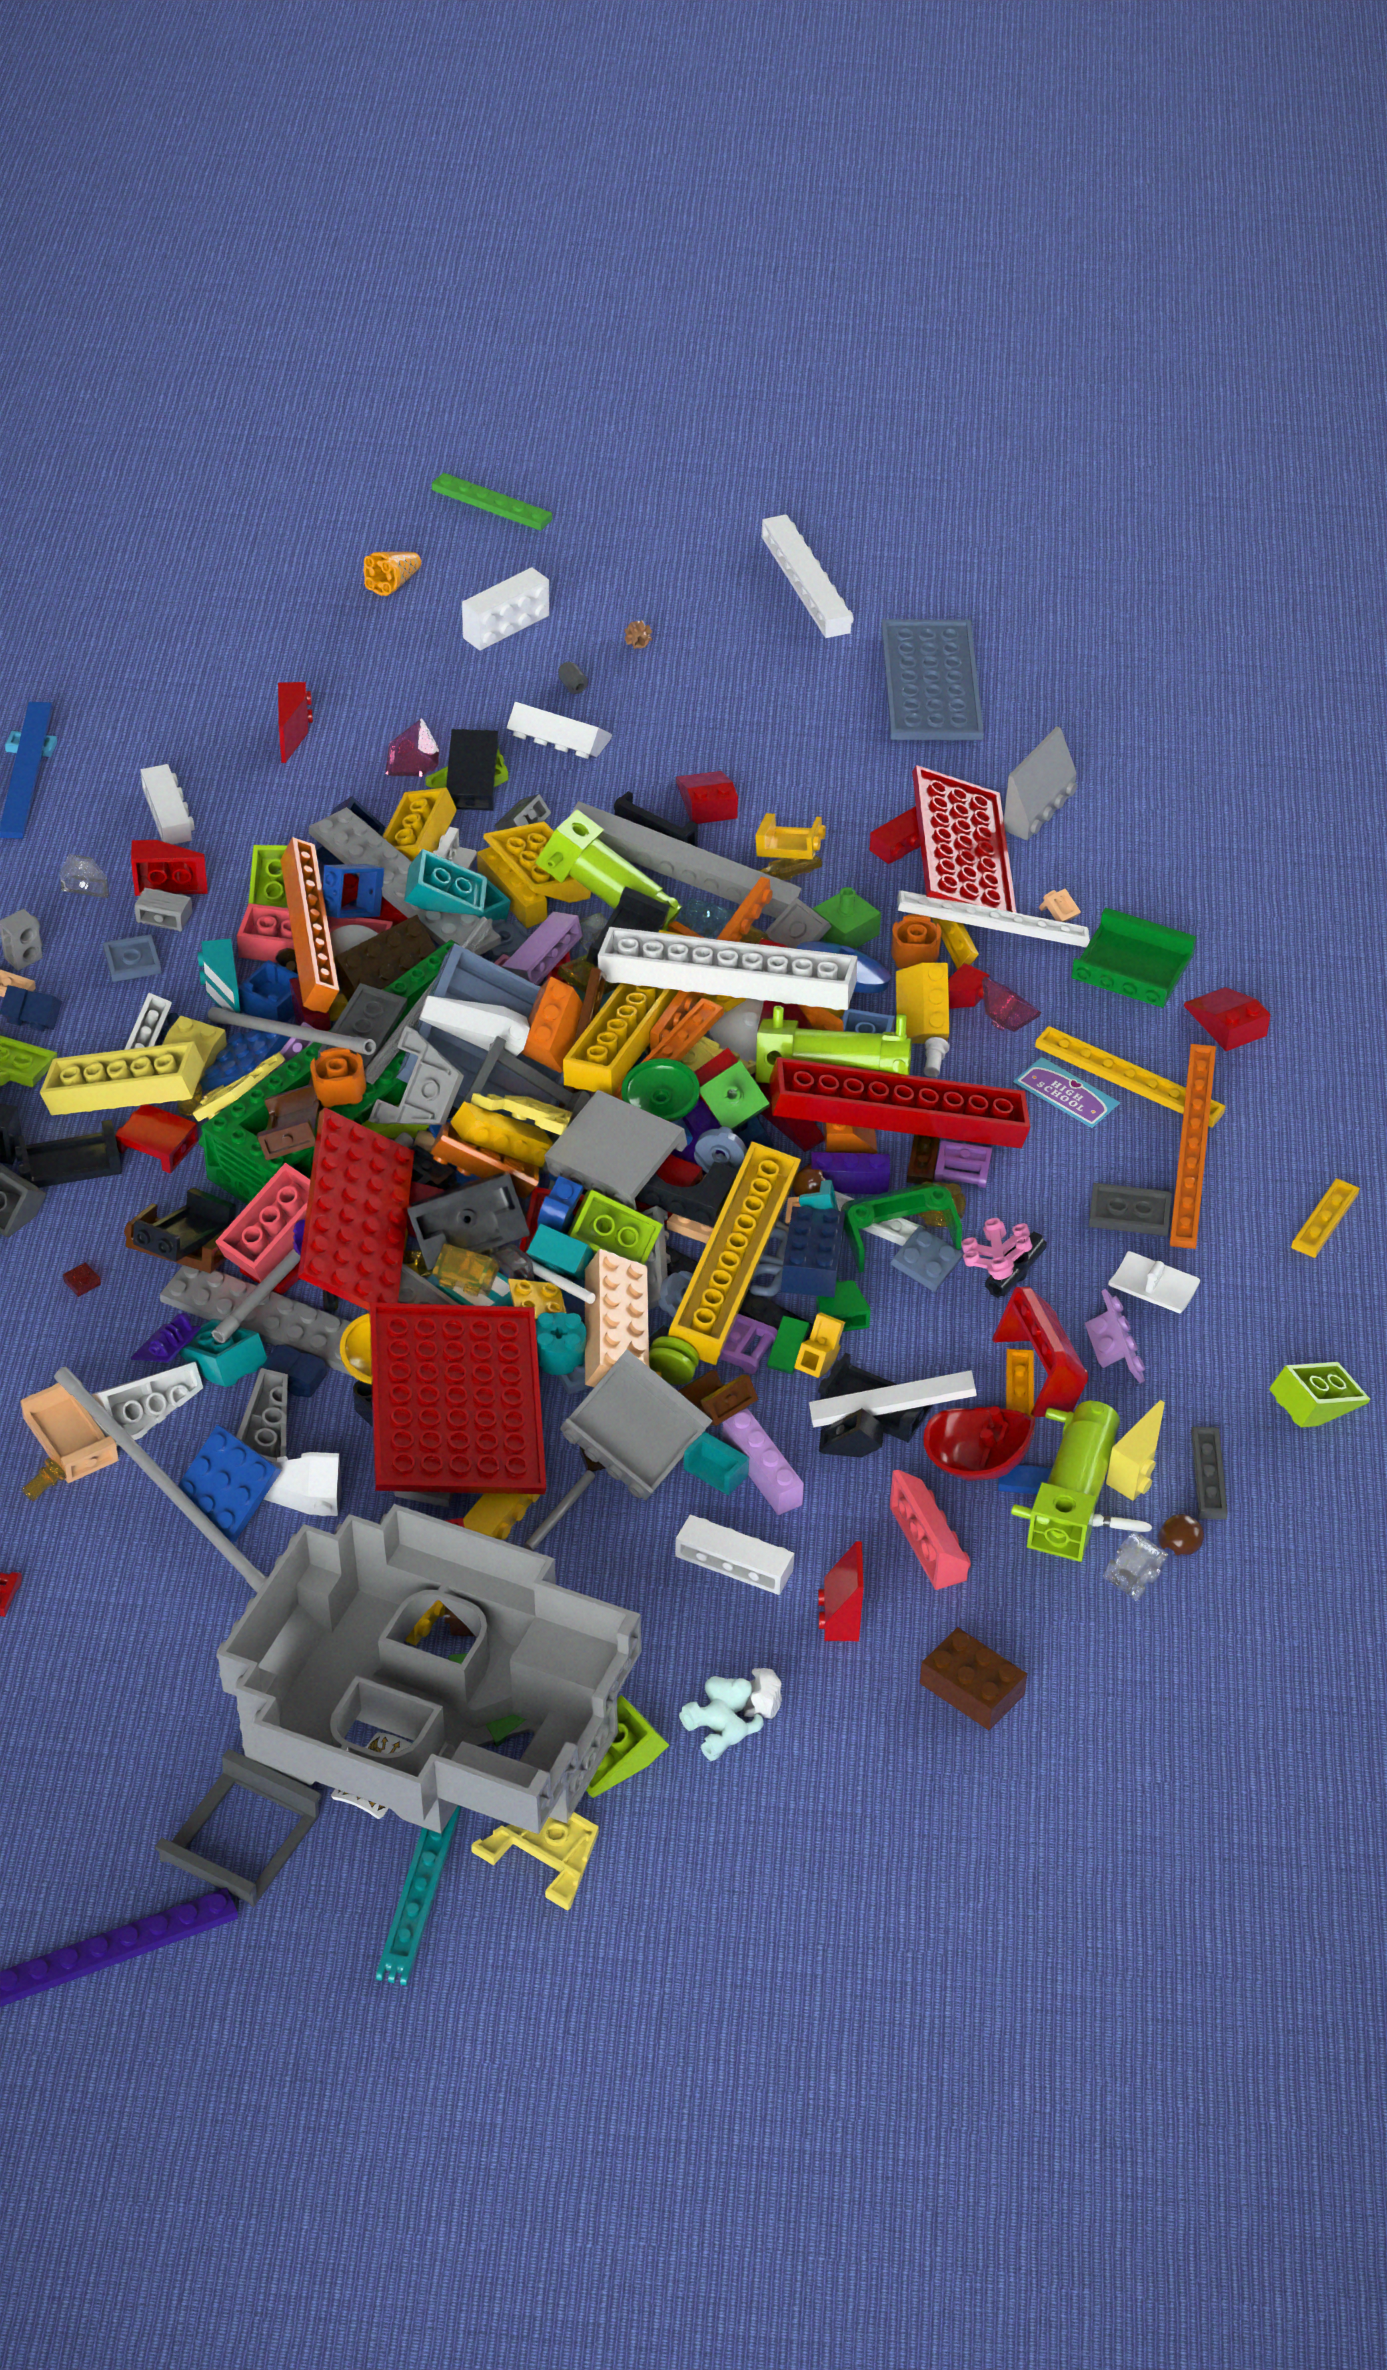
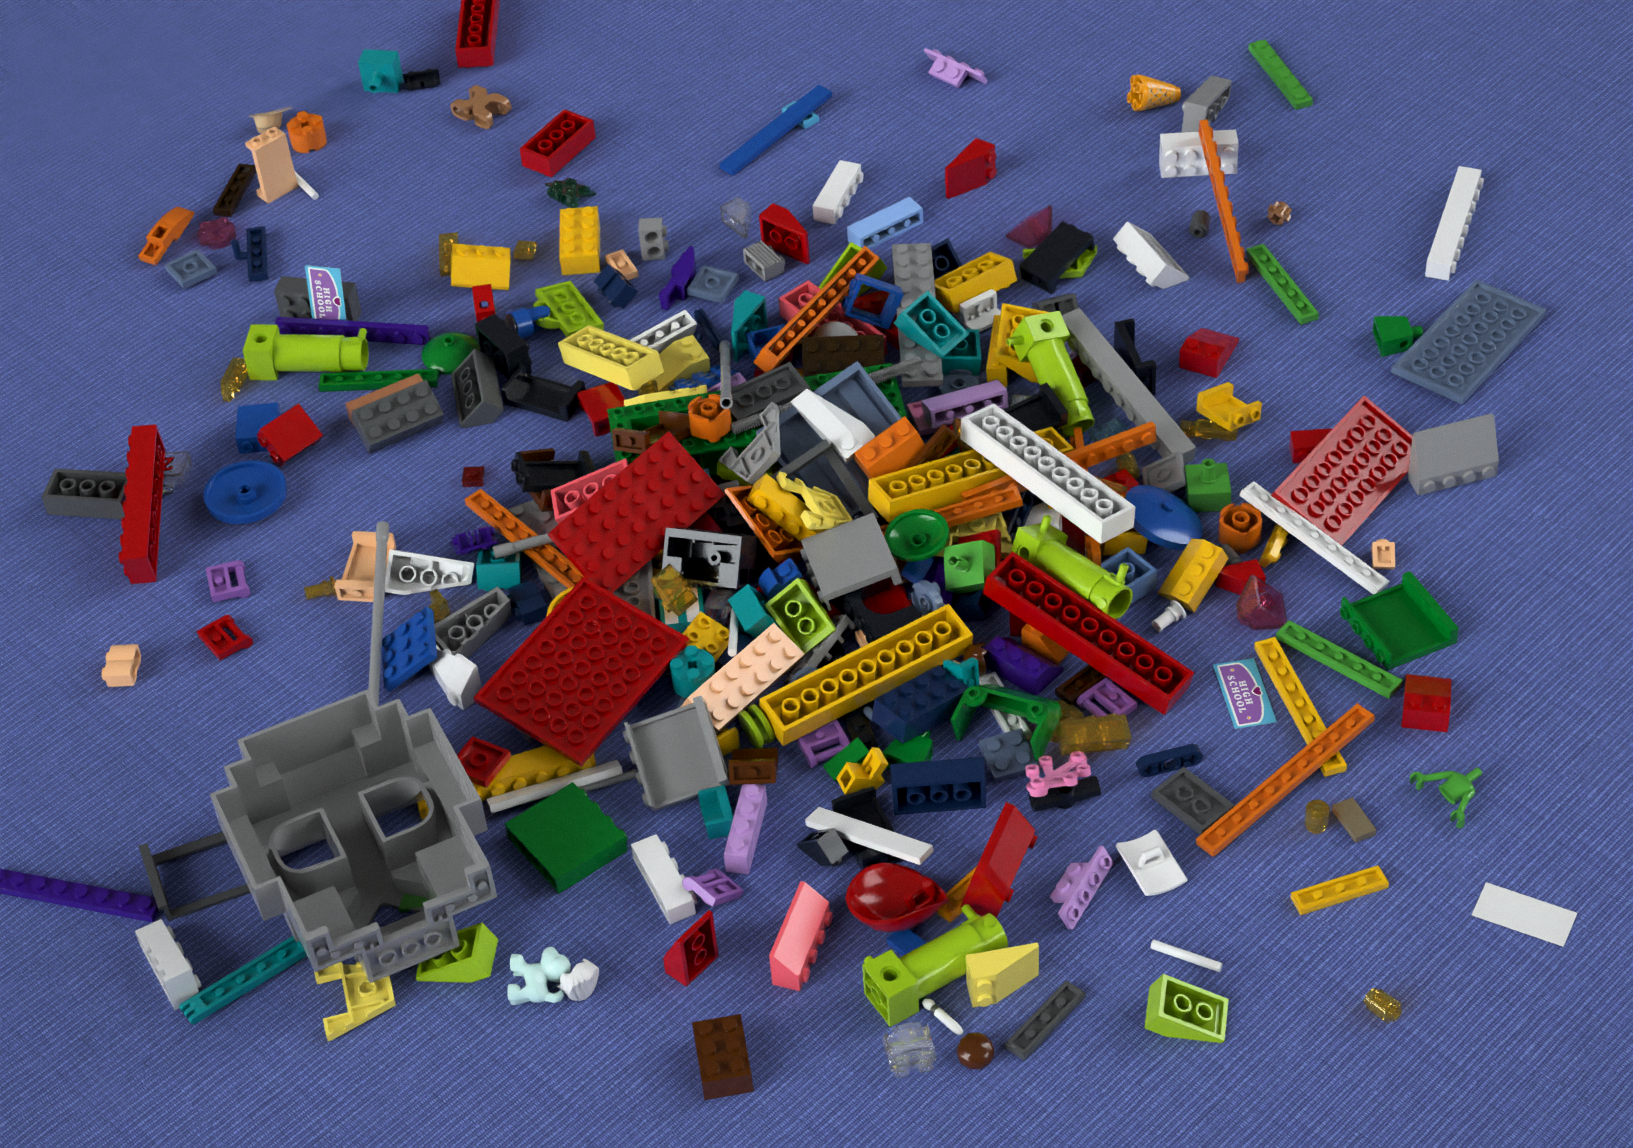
camera: 45 degrees right, 0 degrees up
(91, 966) = (682, 275): none -> dark purple slope
(151, 631) = (951, 71): none -> lavender bracket
(181, 1006) = (708, 327): none -> dark blue axle
(197, 1429) = (439, 606): none -> clear yellow panel
(218, 1306) = (516, 530): none -> orange plate
(253, 815) = (886, 224): none -> light blue brick
(317, 1941) = (168, 962): none -> white wedge
(458, 561) = (1205, 103): none -> light grey wedge
(544, 1509) = (551, 786): none -> white tile
(586, 642) = (1224, 206): none -> orange plate
(603, 1560) = (566, 837): none -> green brick
(709, 701) = (1282, 284): none -> bright green plate
(803, 1532) = (713, 887): none -> medium lavender plate
(860, 702) = (1394, 334): none -> green torso
(904, 1318) = (938, 785): none -> dark blue brick
(989, 1195) = (1093, 734): none -> clear yellow brick
(1073, 1184) = (1155, 764): none -> dark blue beam
(1119, 1018) = (1339, 659): none -> bright green plate
(1249, 1163) = (1316, 816): none -> clear yellow brick
(1263, 1346) = (1186, 955): none -> white bar
(1275, 1151) = (1354, 820): none -> dark tan tile
(1329, 1079) = (1454, 789): none -> bright green piece

